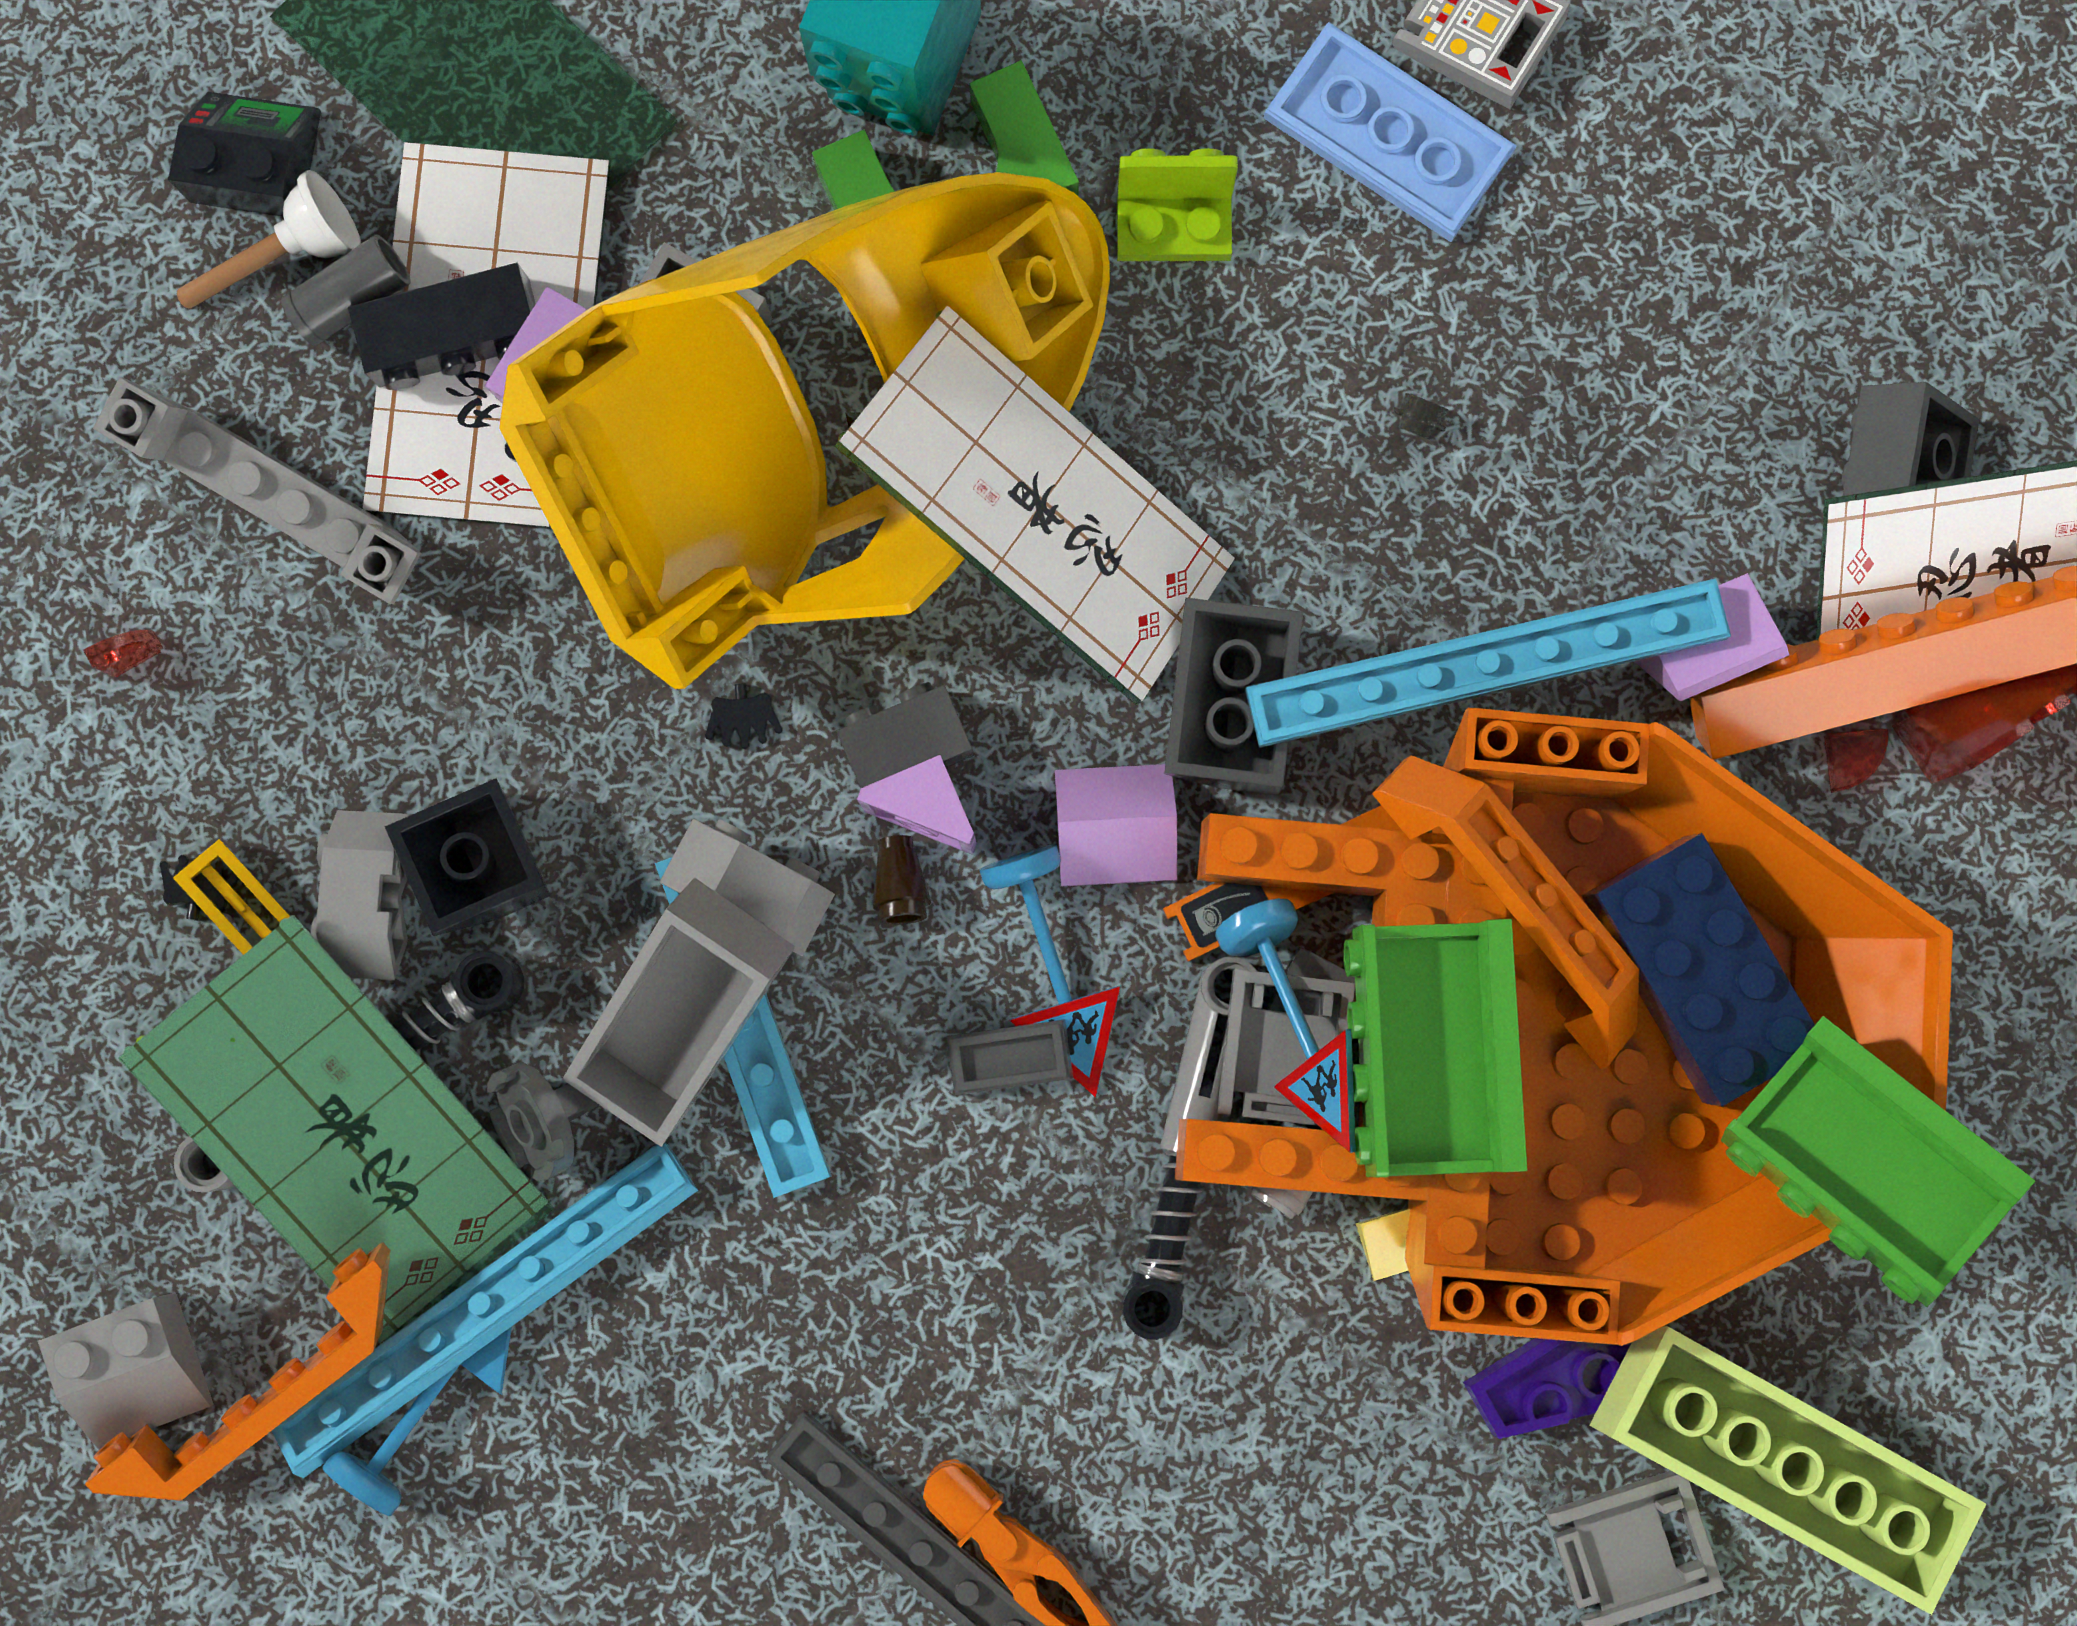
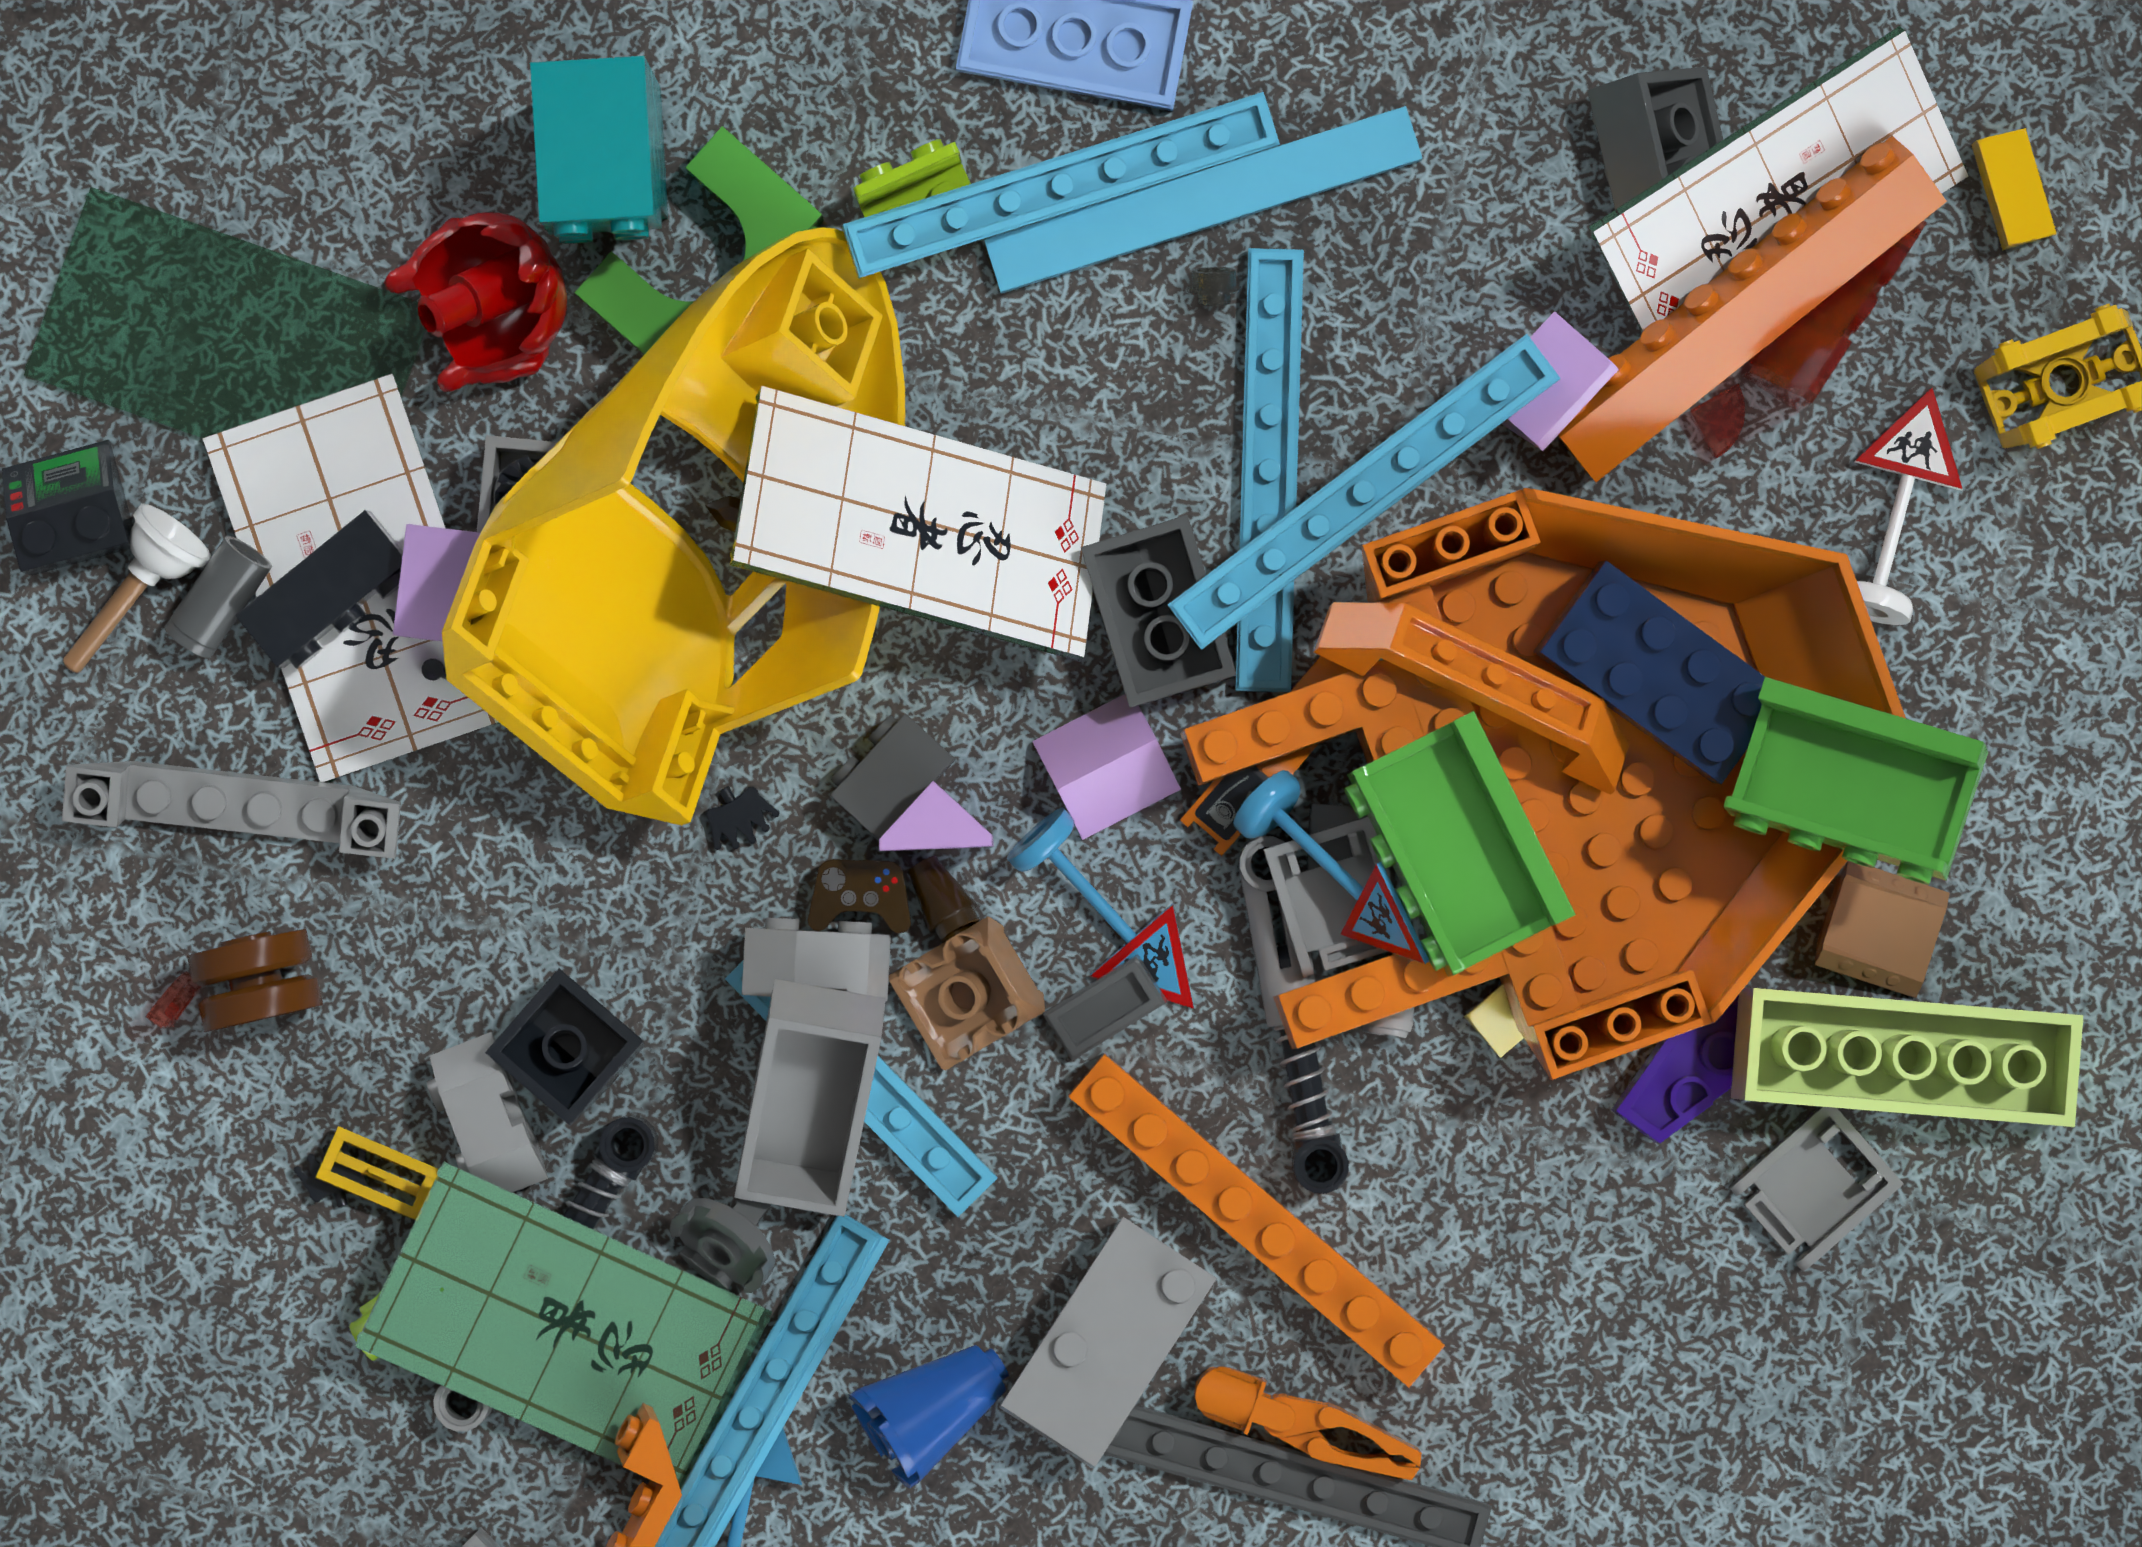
camera: 20 degrees left, 5 degrees up
(204, 652) = (255, 979): none -> reddish brown wheel
(659, 1375) = (928, 1408): none -> blue cone
(732, 121) = (488, 294): none -> red piece
(825, 834) = (862, 888): none -> dark brown piece
(862, 1391) = (1107, 1342): none -> light grey brick
(883, 983) = (968, 992): none -> medium nougat slope
(1066, 1338) = (1256, 1220): none -> orange brick
(1316, 257) = (1060, 185): none -> medium azure tile
(1404, 597) = (1270, 451): none -> medium azure tile
(1445, 334) = (1203, 199): none -> medium azure tile
(1807, 1323) = (1881, 928): none -> medium nougat slope
(2032, 867) = (1916, 450): none -> white piece

